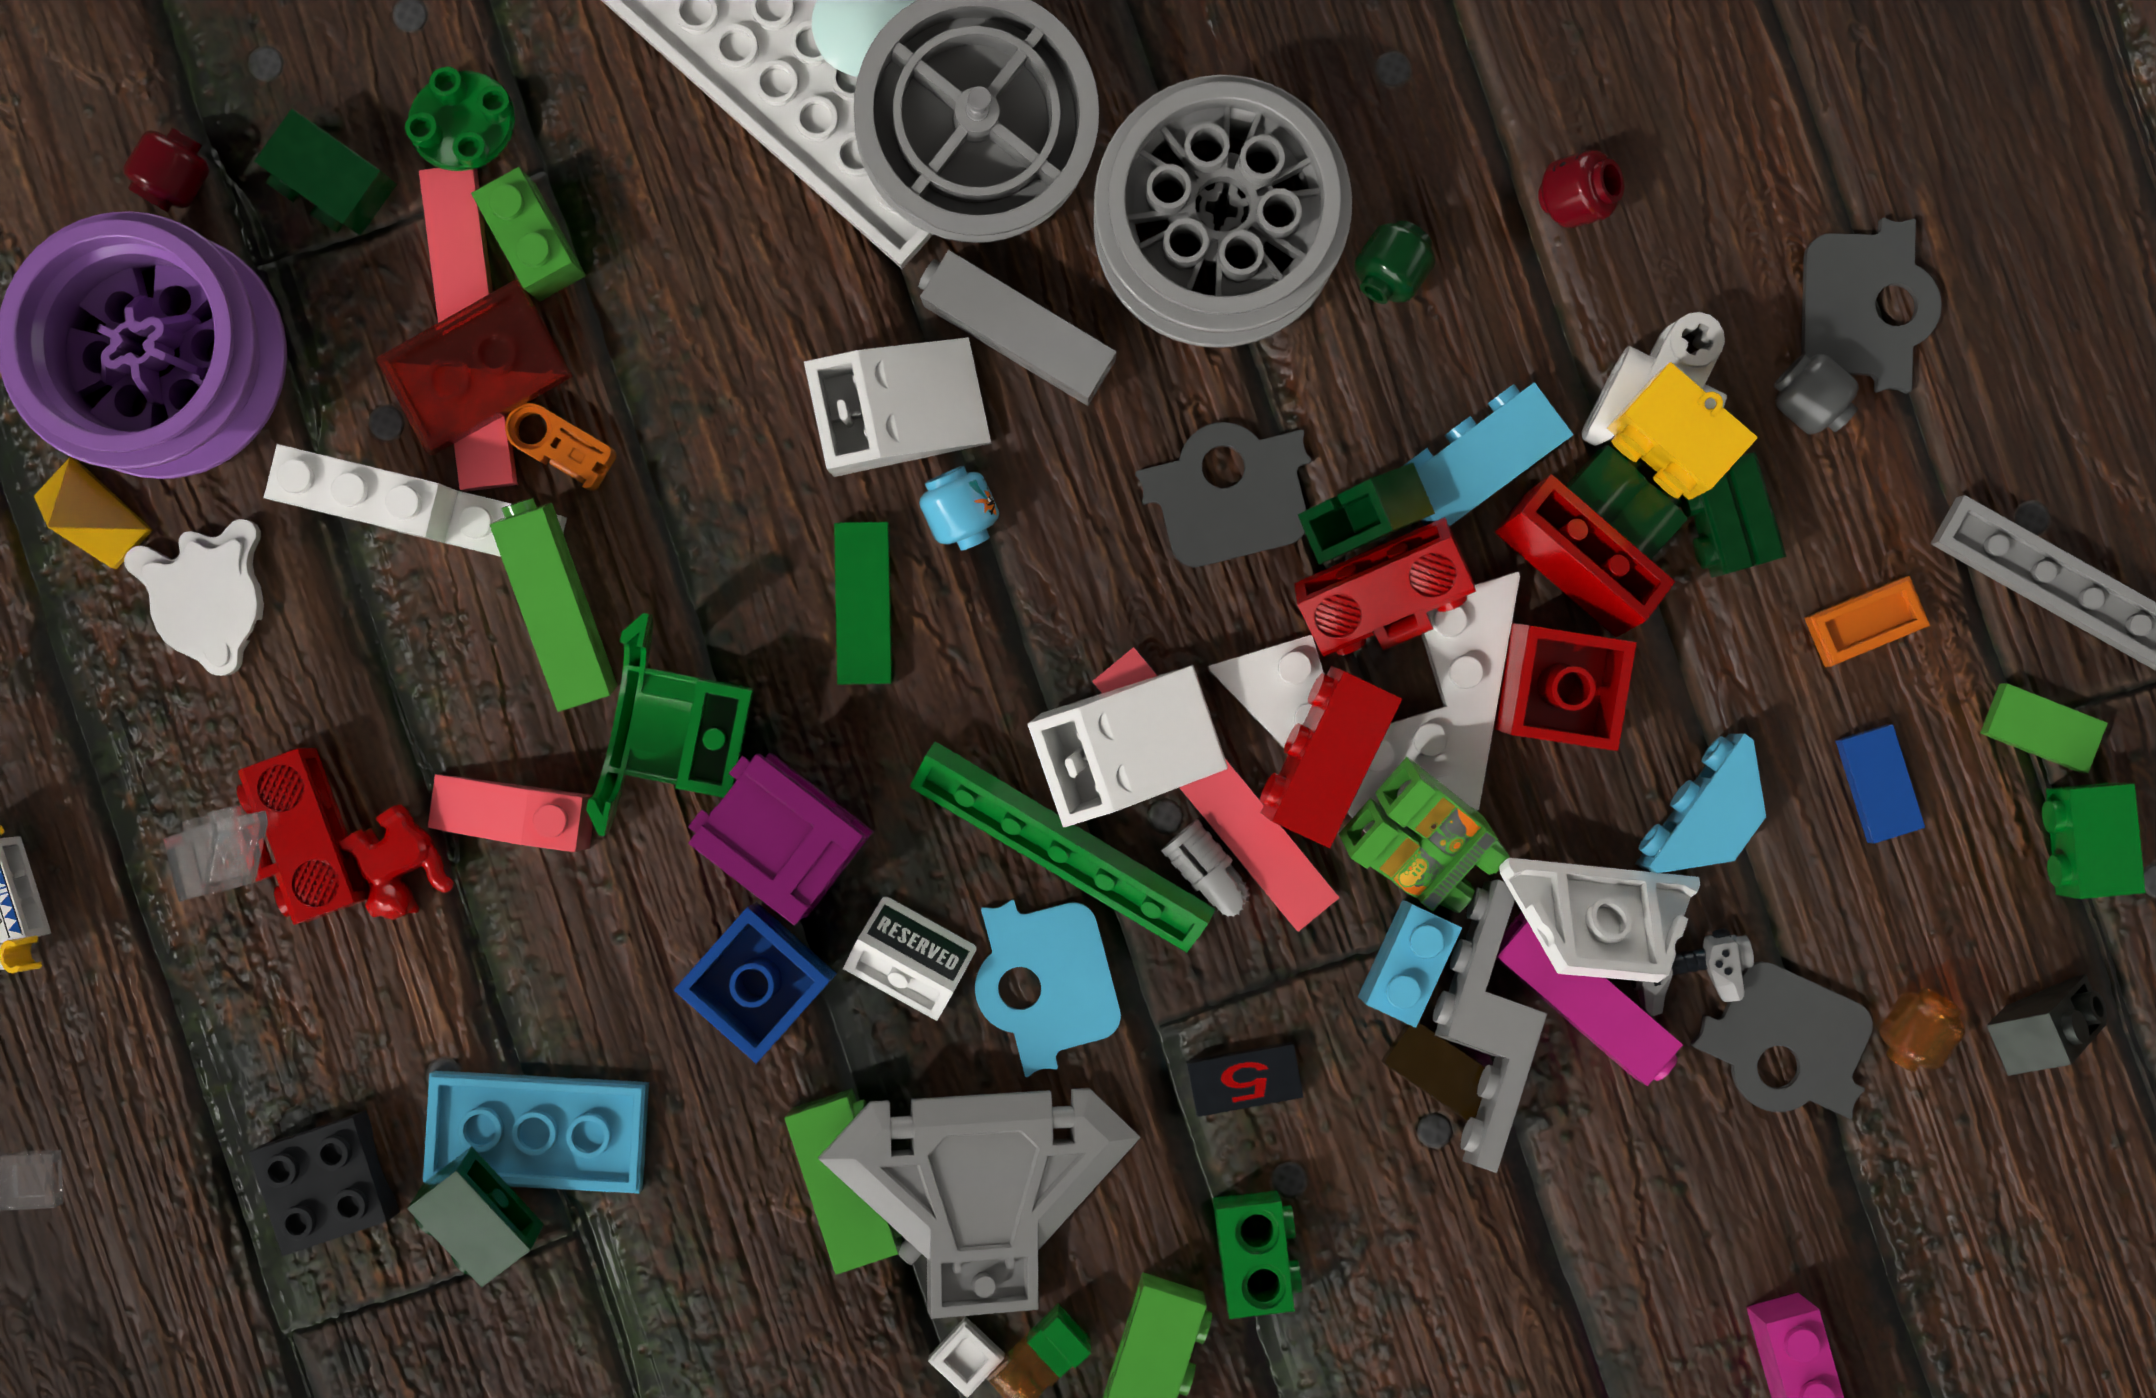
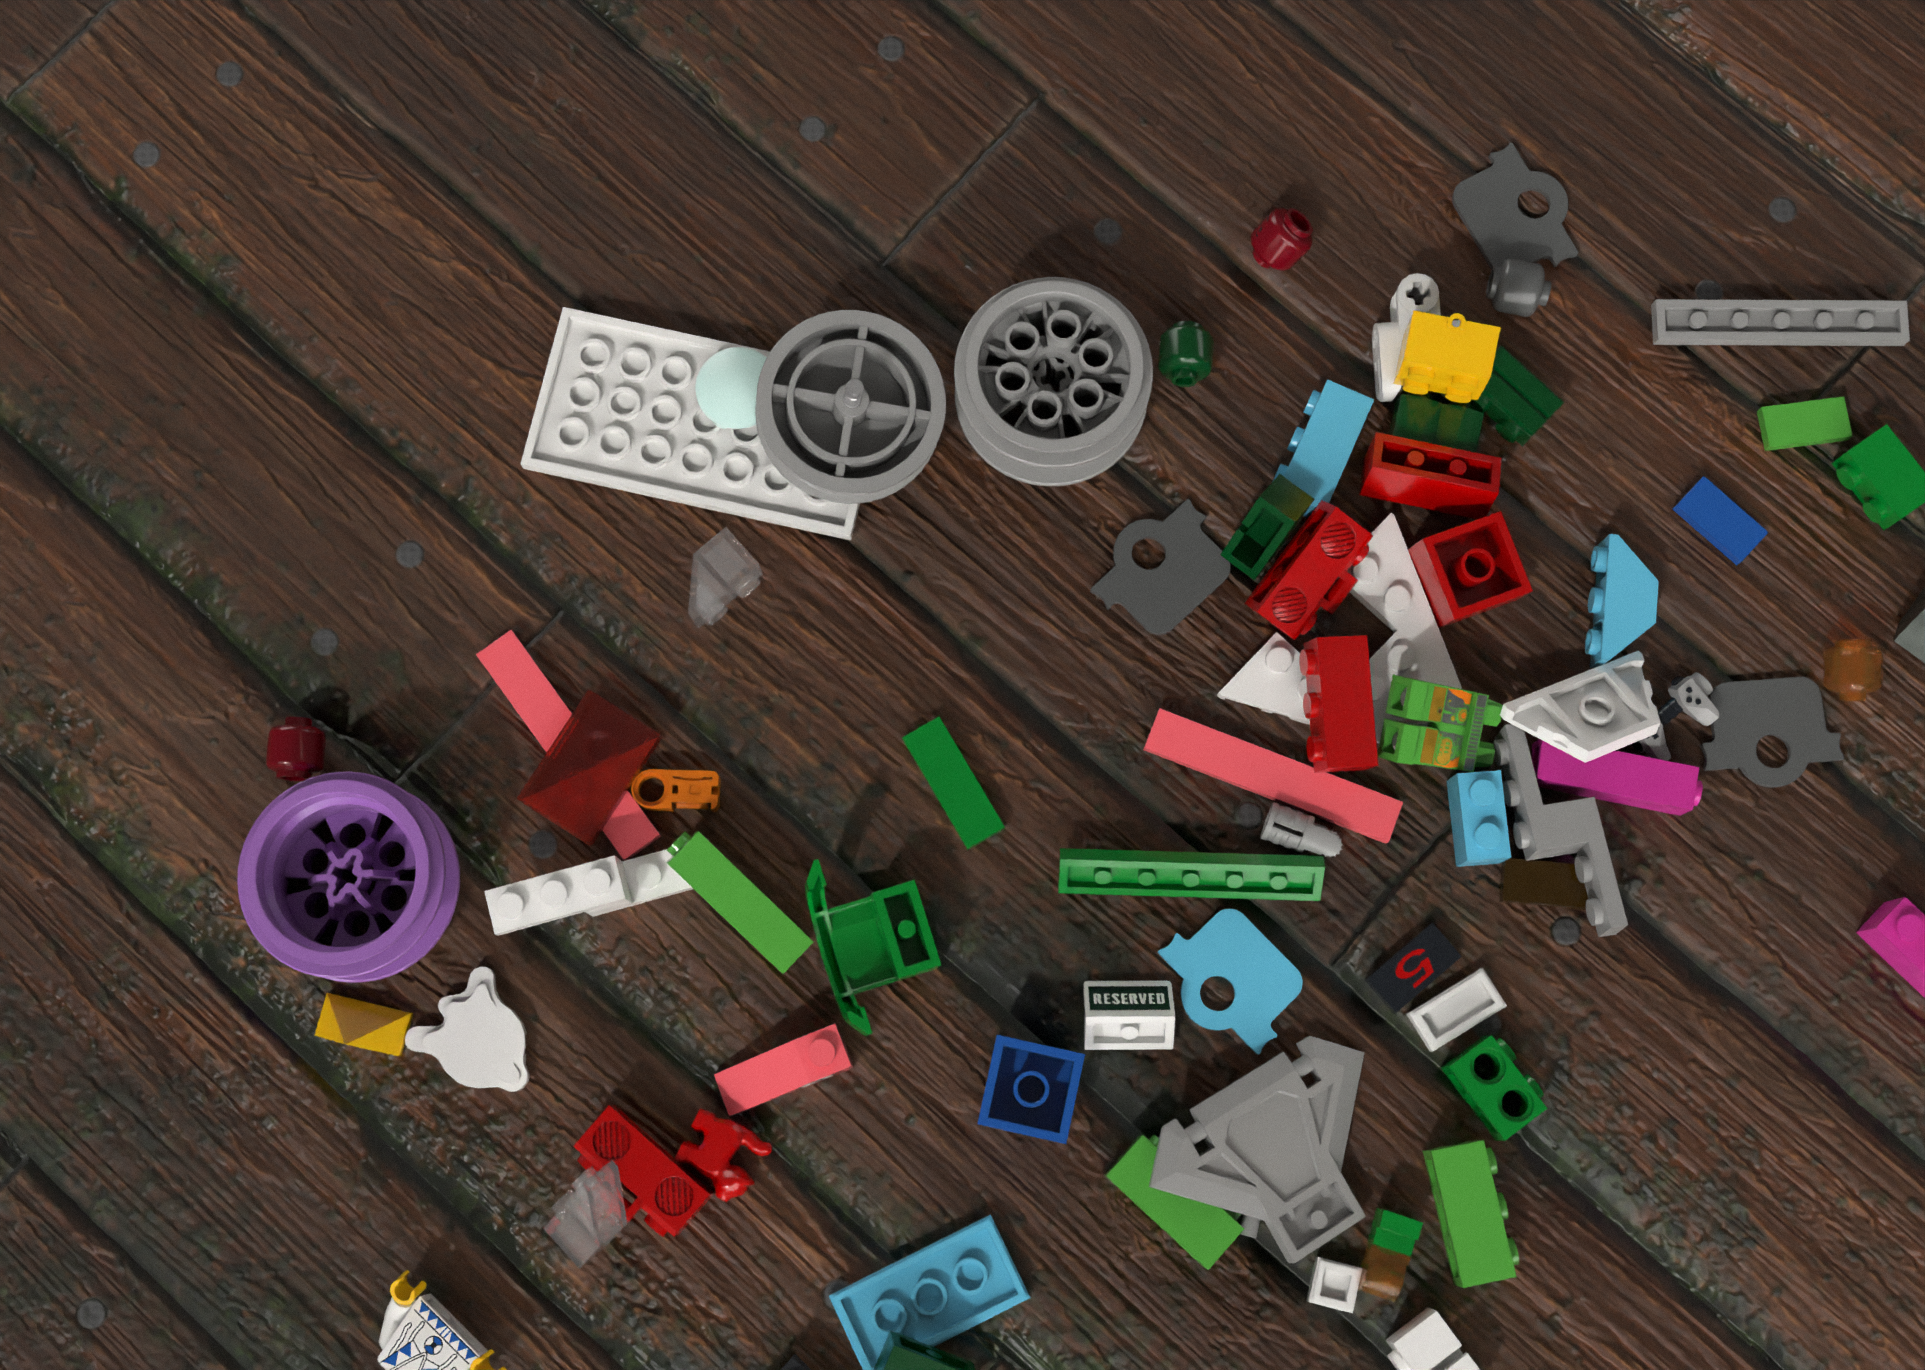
camera: 30 degrees left, 10 degrees down
(324, 172) = (410, 692): dark green brick -> none
(460, 119) = (487, 604): green dish -> none
(528, 234) = (579, 655): bright green brick -> none
(730, 229) = (718, 576): none -> clear slope
(779, 836) = (990, 972): magenta container -> none
(896, 404) = (900, 632): white slope -> none
(959, 508) = (984, 679): medium azure head -> none
(1016, 326) = (953, 535): light grey brick -> none
(1127, 745) = (1197, 774): white slope -> none
(1265, 1148) = (1456, 1009): none -> white tile
(1867, 621) = (1643, 418): orange tile -> none

